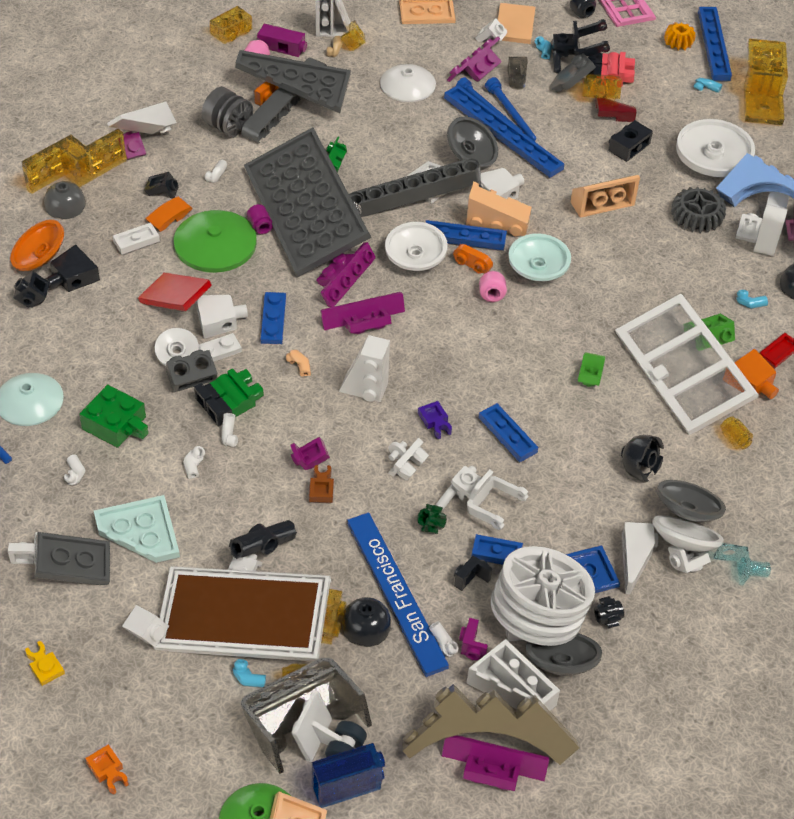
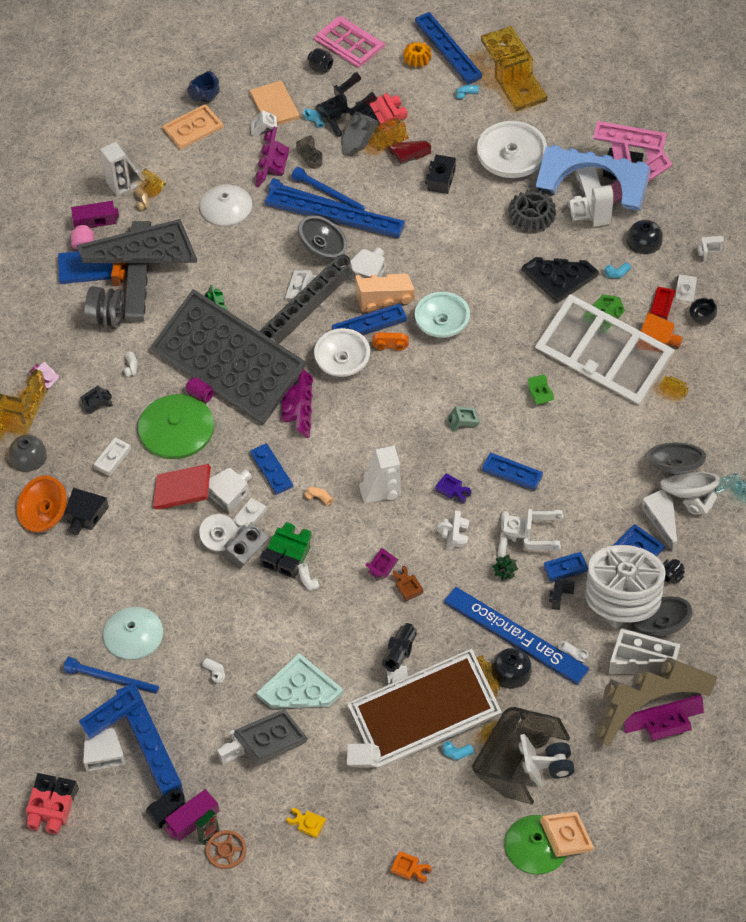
camera: 25 degrees left, 5 degrees up
(31, 290) = (67, 544): black brick -> none
(114, 417) = (216, 612): green hinge -> none
(146, 120) = (43, 347): white wedge -> none
(172, 210) = (121, 421): orange slope -> none
(192, 460) = (296, 616): white arm -> none
(231, 24) = (40, 221): clear yellow brick -> none
(235, 79) = (74, 271): none -> blue tile
(347, 775) = (578, 780): clear blue brick -> none
(364, 314) = (341, 430): magenta bracket -> none
(470, 648) = (594, 647): magenta bracket -> none
(492, 286) = (421, 357): bright pink head -> none
(494, 358) = (463, 417): none -> sand green bracket
(605, 196) = (455, 234): light nougat slope -> none
(642, 451) = (618, 439): black cylinder -> none
(687, 277) = (559, 276): none -> black plate

